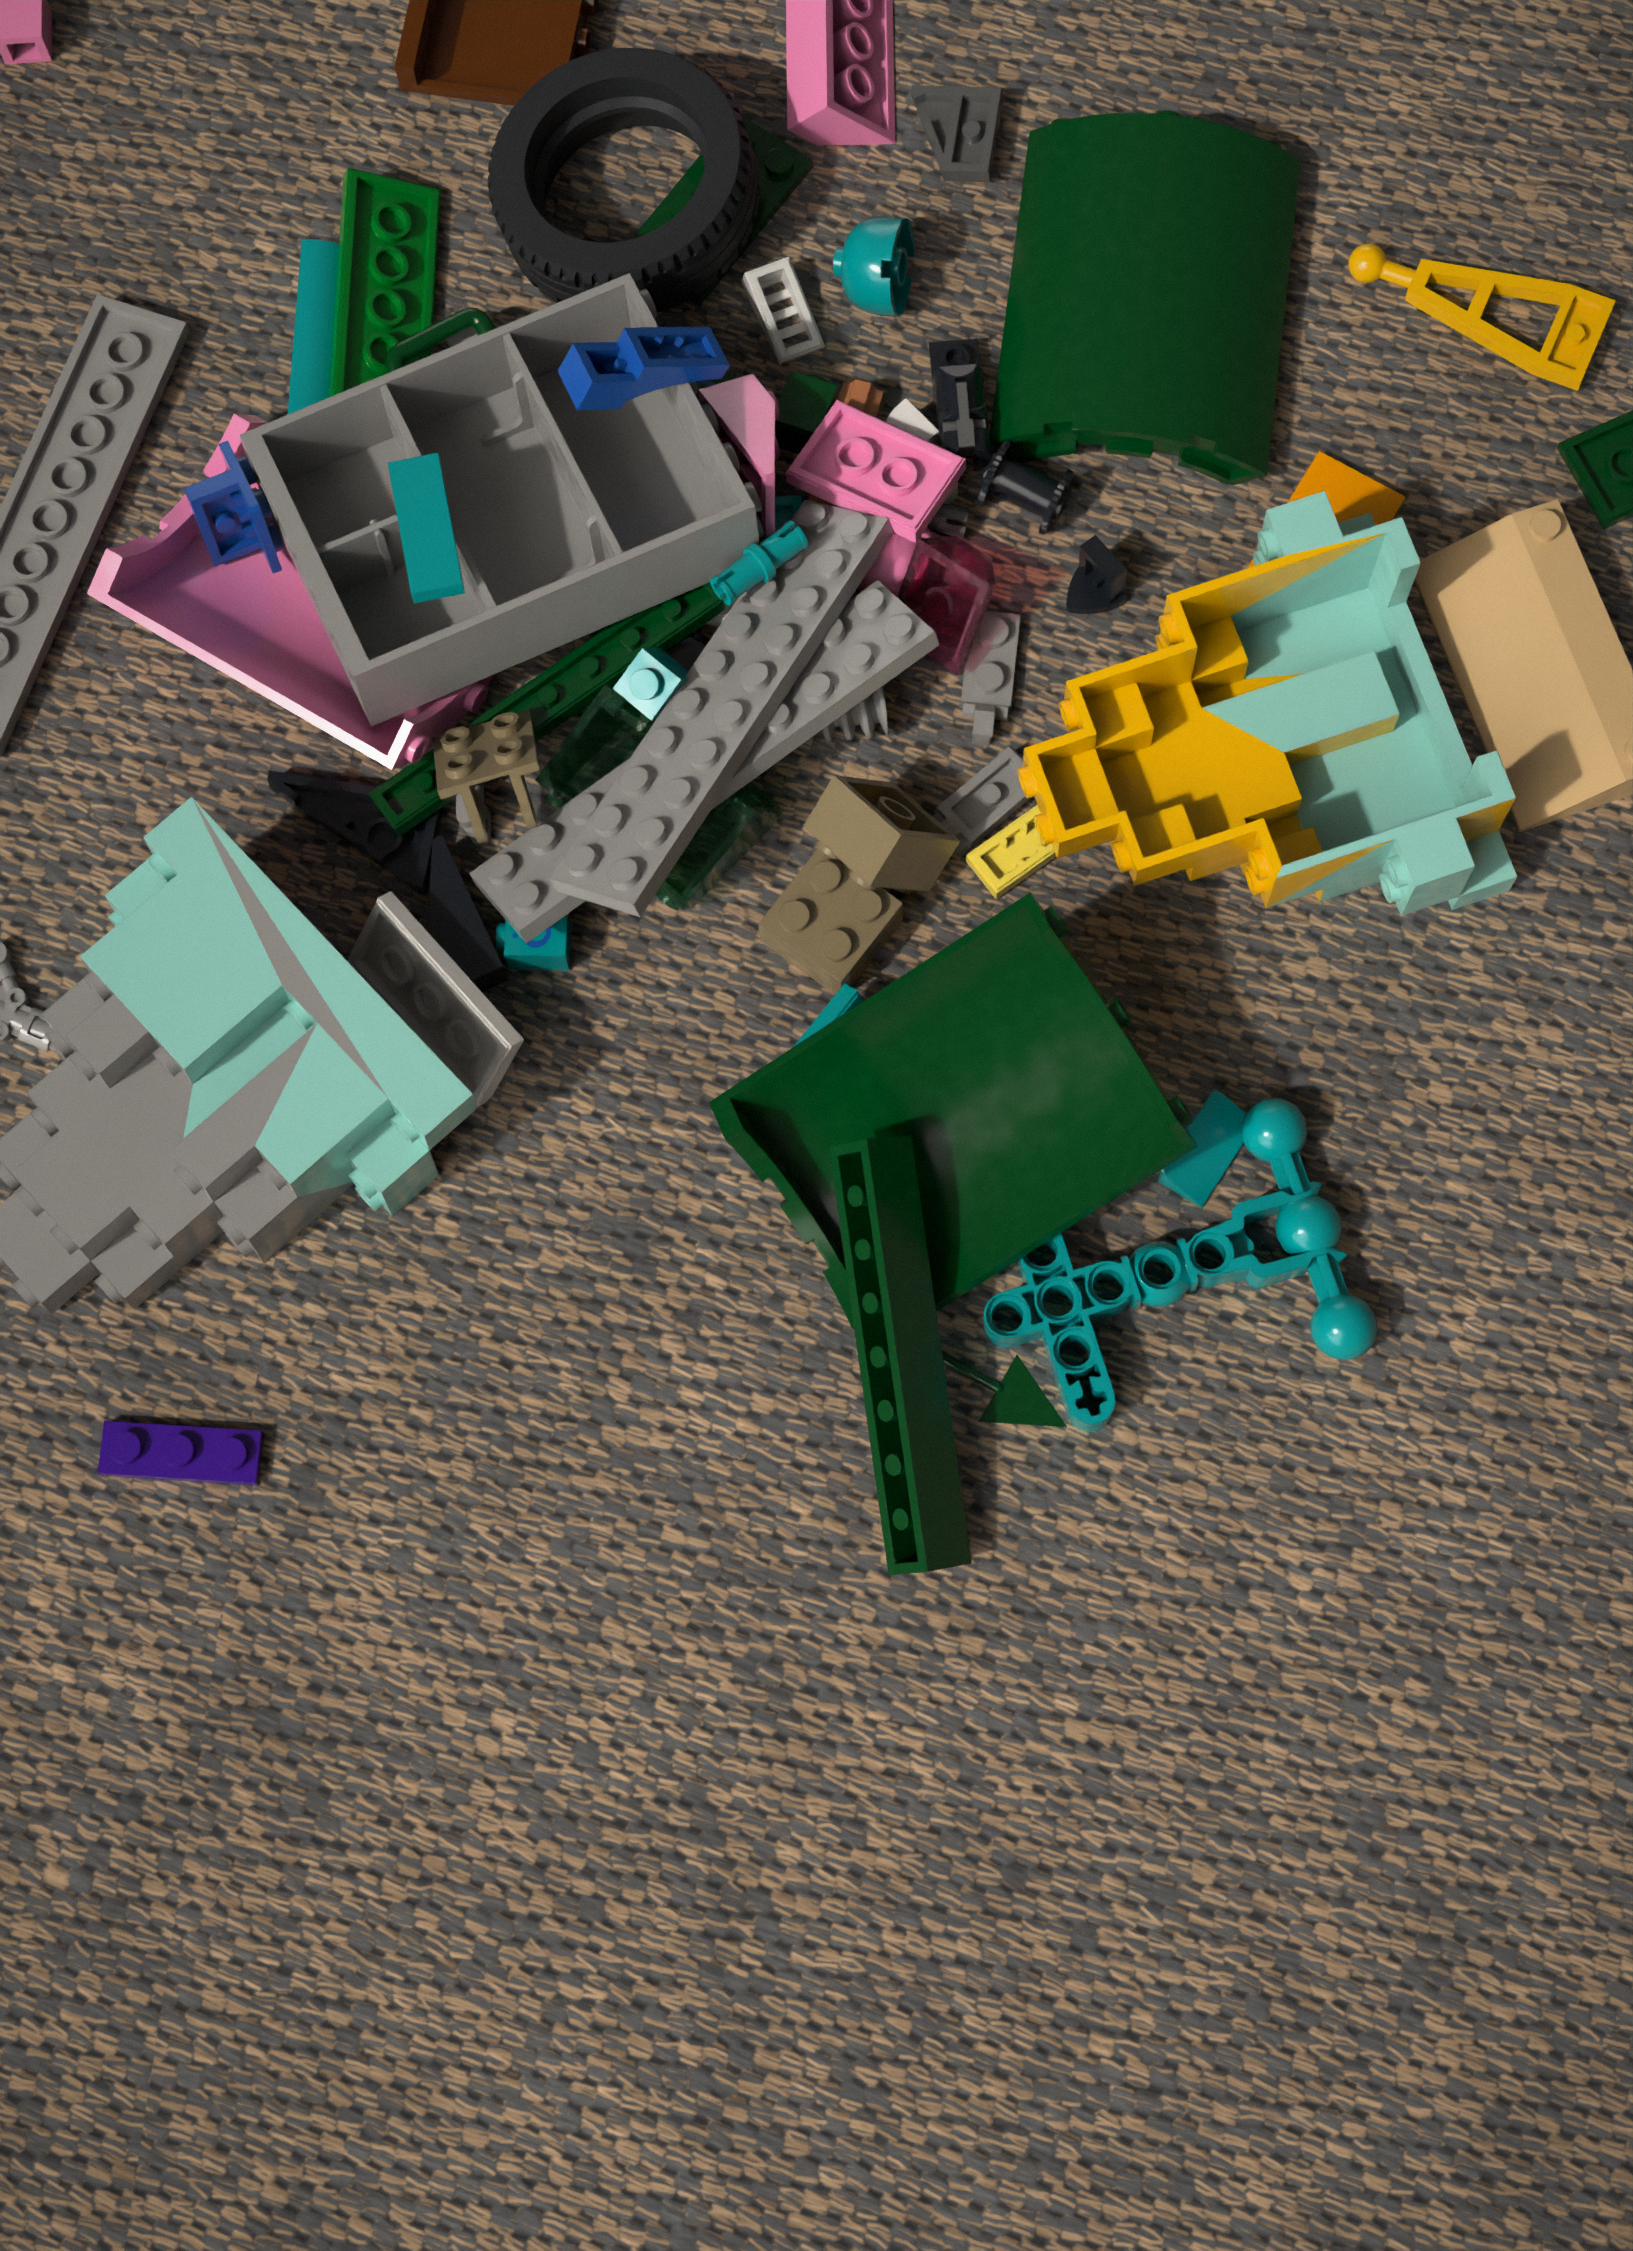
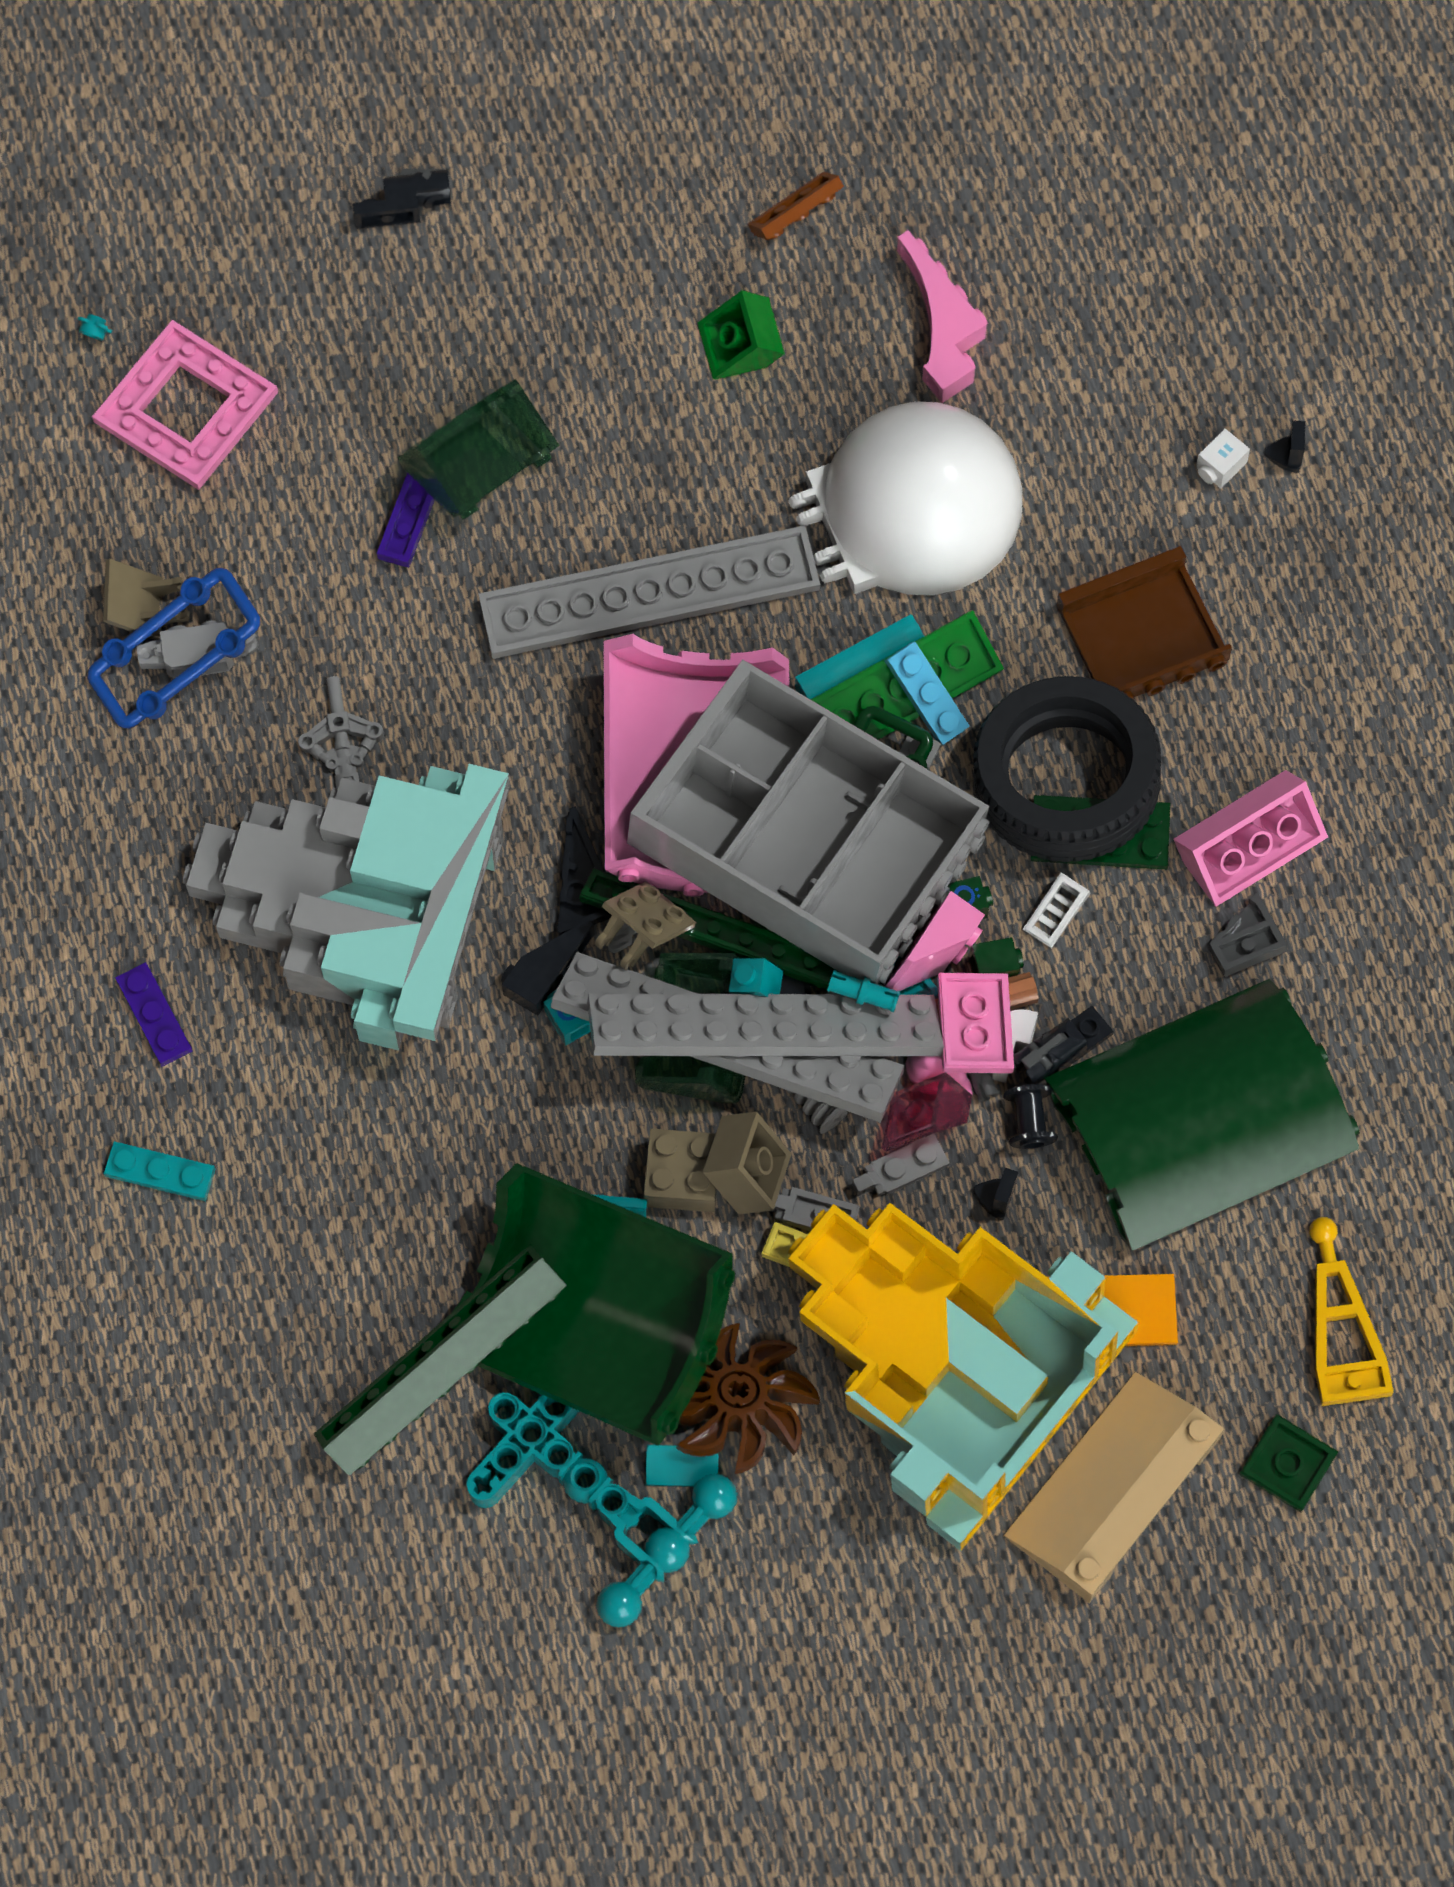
camera: 55 degrees right, 5 degrees down
(156, 152) = (915, 501): none -> white windscreen
(234, 514) = (705, 679): blue bracket -> none
(399, 1569) = (159, 1171): none -> teal plate
(411, 283) = (927, 693): none -> medium azure plate
(426, 528) = (746, 794): teal tile -> none
(434, 997) = (493, 981): white tile -> none
(638, 363) = (926, 847): blue slope -> none
(875, 264) = (1115, 944): teal cylinder -> none
(1015, 1399) = (465, 1447): dark green piece -> none
(1197, 1017) = (744, 1399): none -> reddish brown piece

